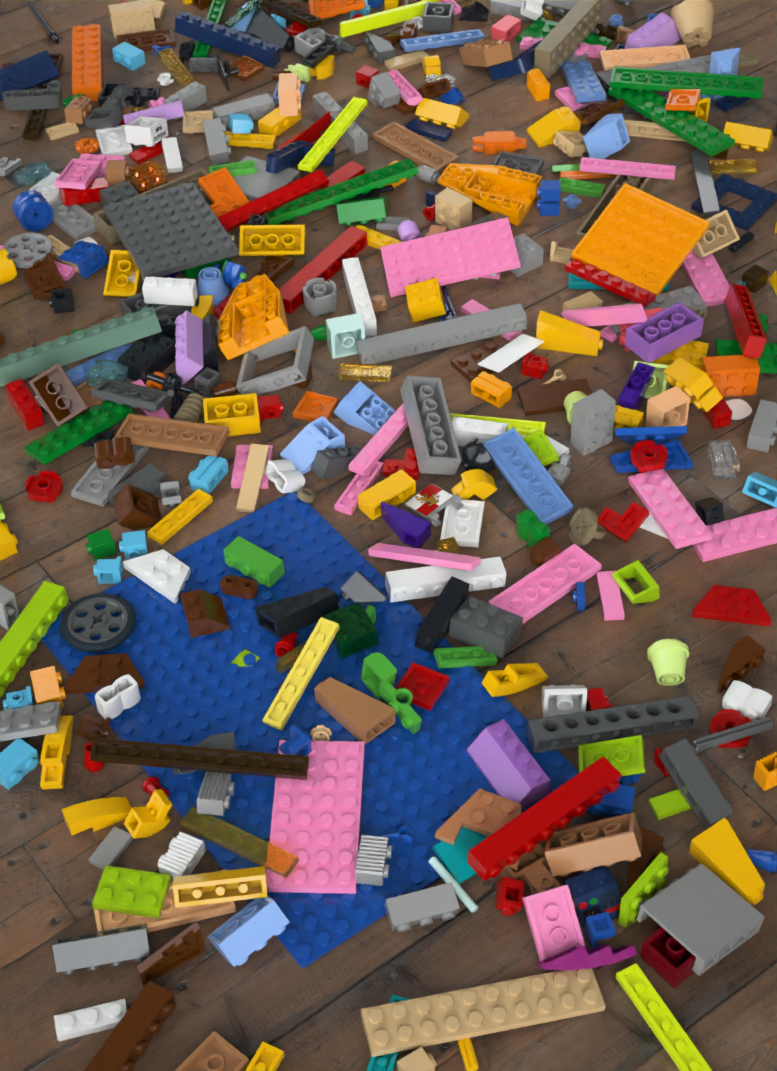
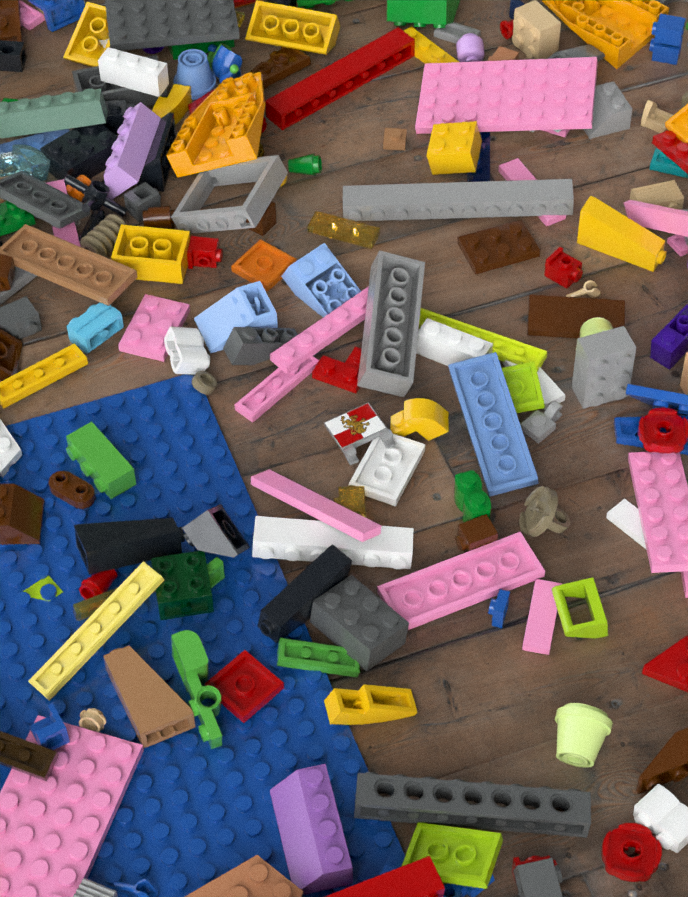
camera: 15 degrees right, 5 degrees up
(170, 493) = (39, 342): bracket -> none
(252, 478) = (144, 344): tan tile -> none
(320, 296) = (323, 115): light grey brick -> none
(343, 334) = (330, 172): light aqua brick -> none
(359, 294) = (373, 126): white brick -> none
(391, 490) = (304, 405): yellow brick -> none
(408, 527) = (317, 461): dark purple slope -> none
(476, 457) = (436, 382): black cylinder -> none
(491, 389) = (494, 289): light orange brick -> none
(510, 353) = (536, 244): white sticker -> none
(563, 699) = (420, 753): white slope -> none
(597, 700) = (464, 765): red brick -> none
(625, 525) = (599, 521): red plate -> none
(627, 418) = (653, 370): yellow brick -> none
(733, 734) = (628, 863): dark grey axle -> none

